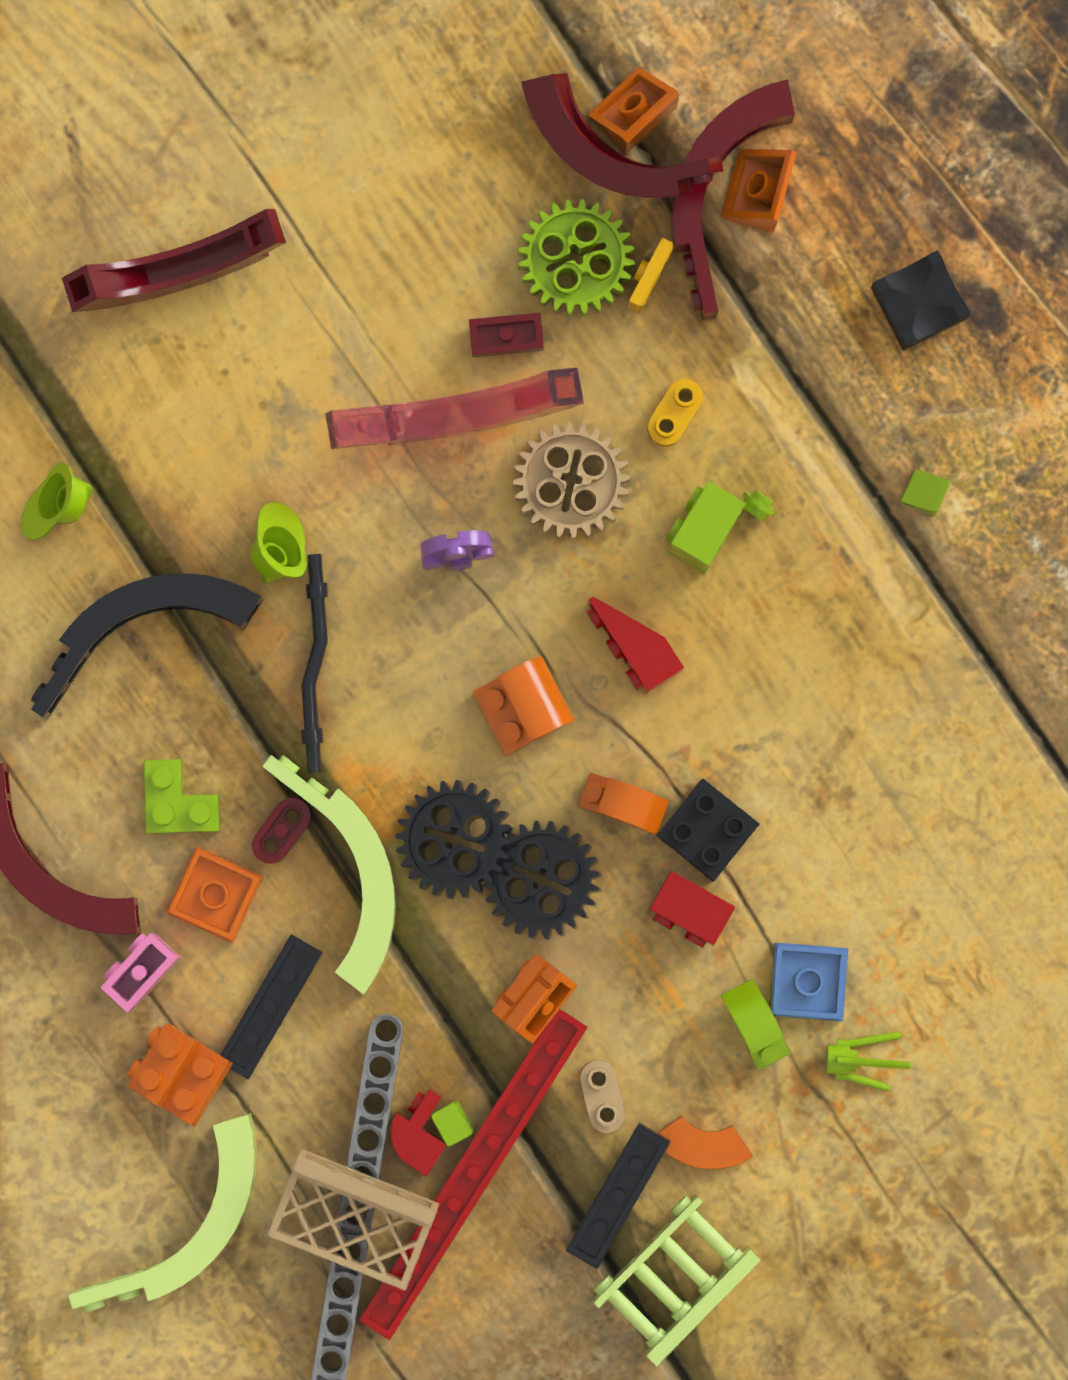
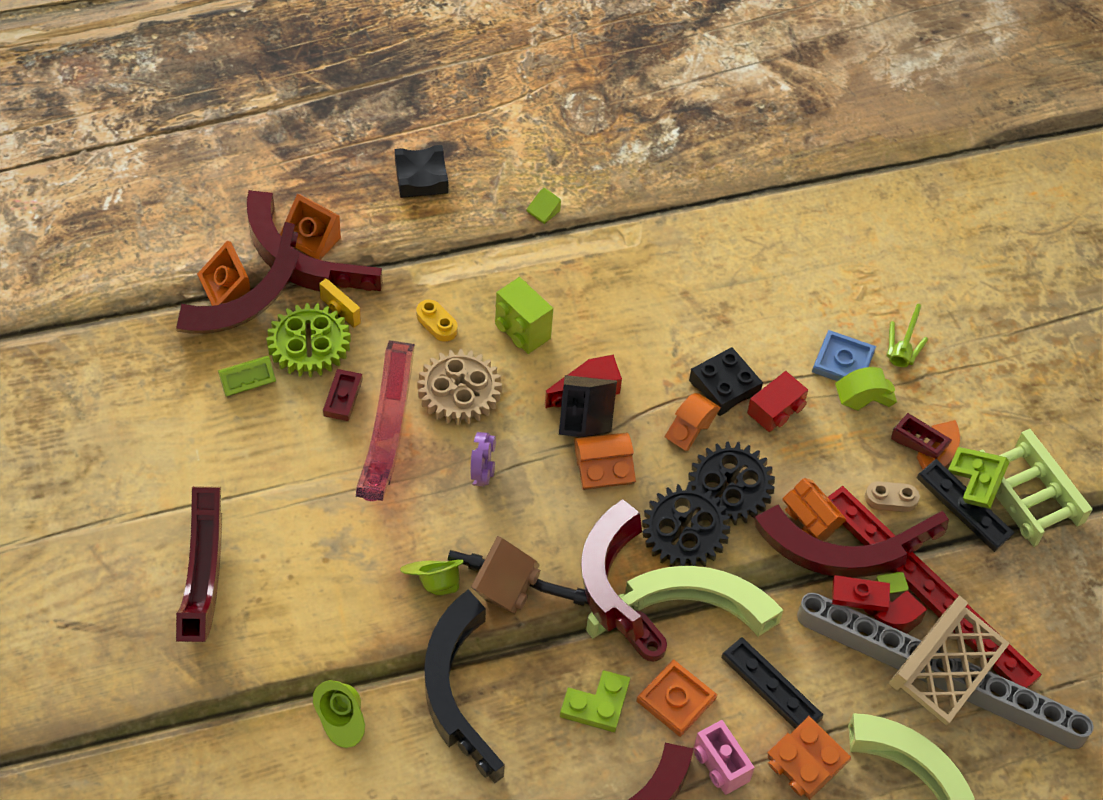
camera: 70 degrees left, 30 degrees down
(283, 639) = (506, 576): none -> medium nougat slope
(343, 742) = (601, 547): none -> arch
(415, 1087) = (861, 593): none -> red plate
(465, 1022) = (845, 560): none -> dark red arch
(490, 201) = (246, 375): none -> lime plate
(583, 657) = (587, 406): none -> black slope
(655, 1214) = (984, 473): none -> lime plate
(715, 1087) = (916, 426): none -> dark red slope

